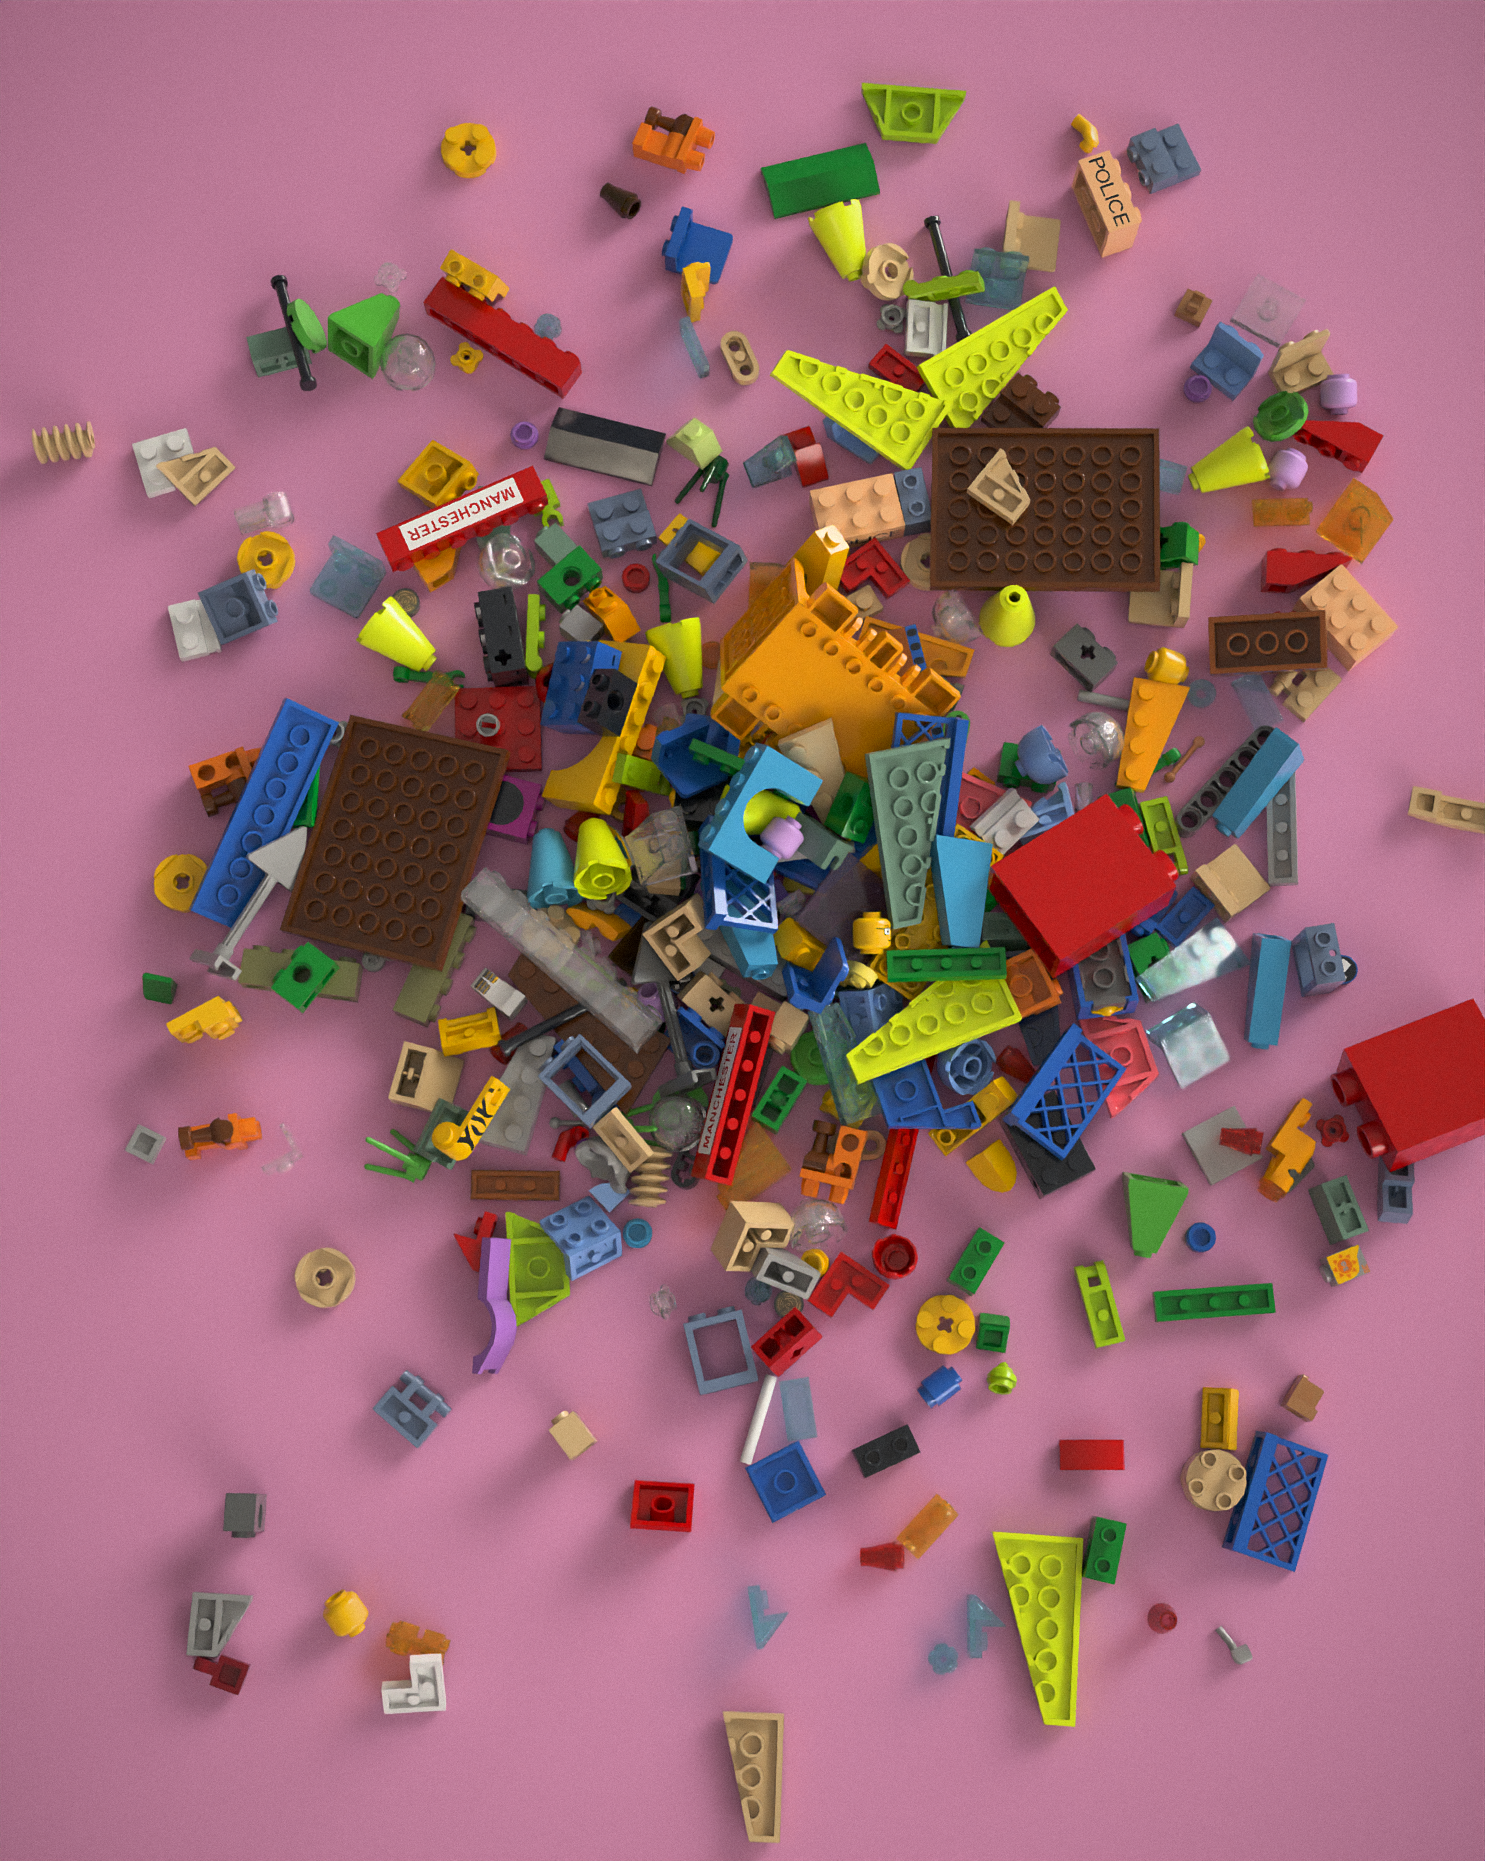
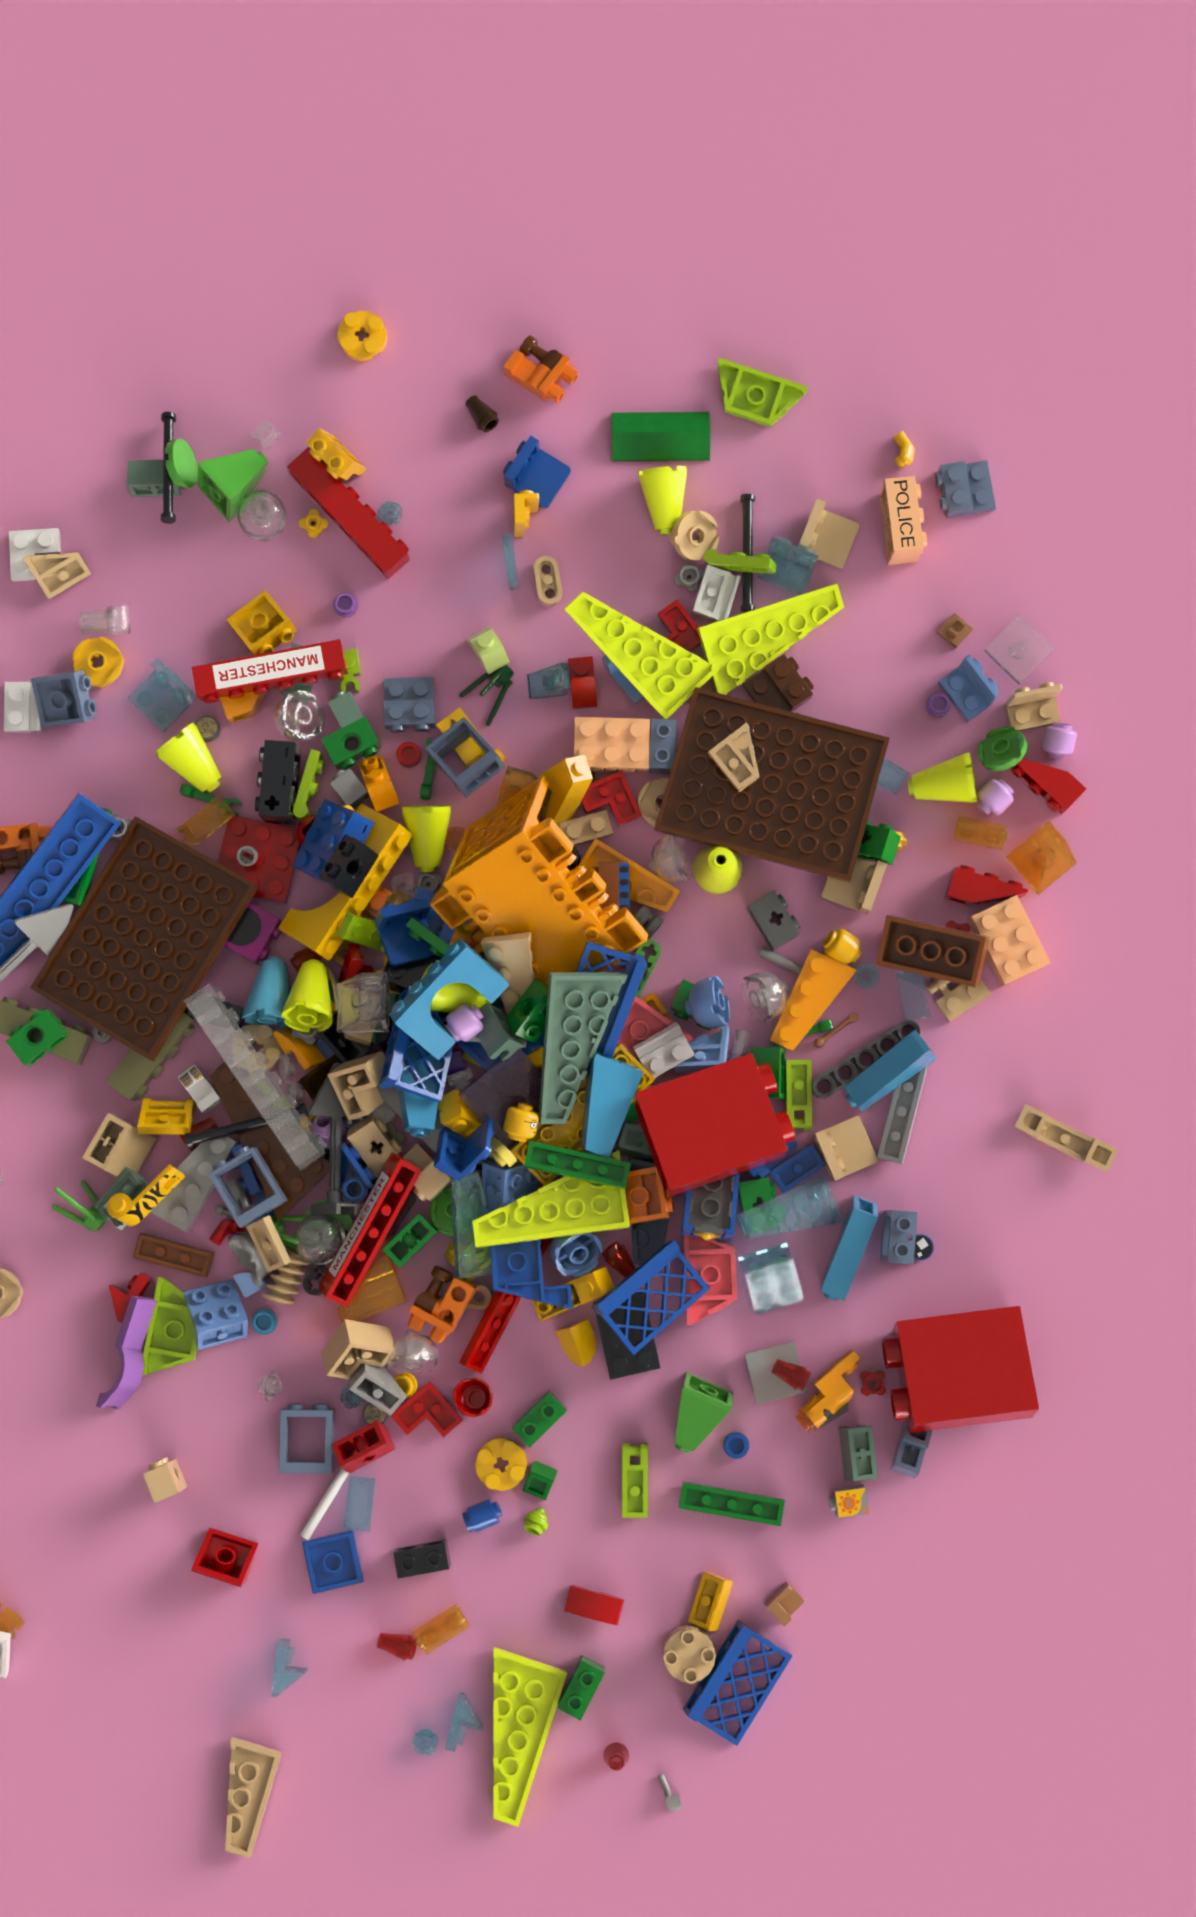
camera: 15 degrees right, 5 degrees up
(405, 1415) = (33, 1426): sand blue plate -> none
(604, 446) = (412, 630): slope -> none

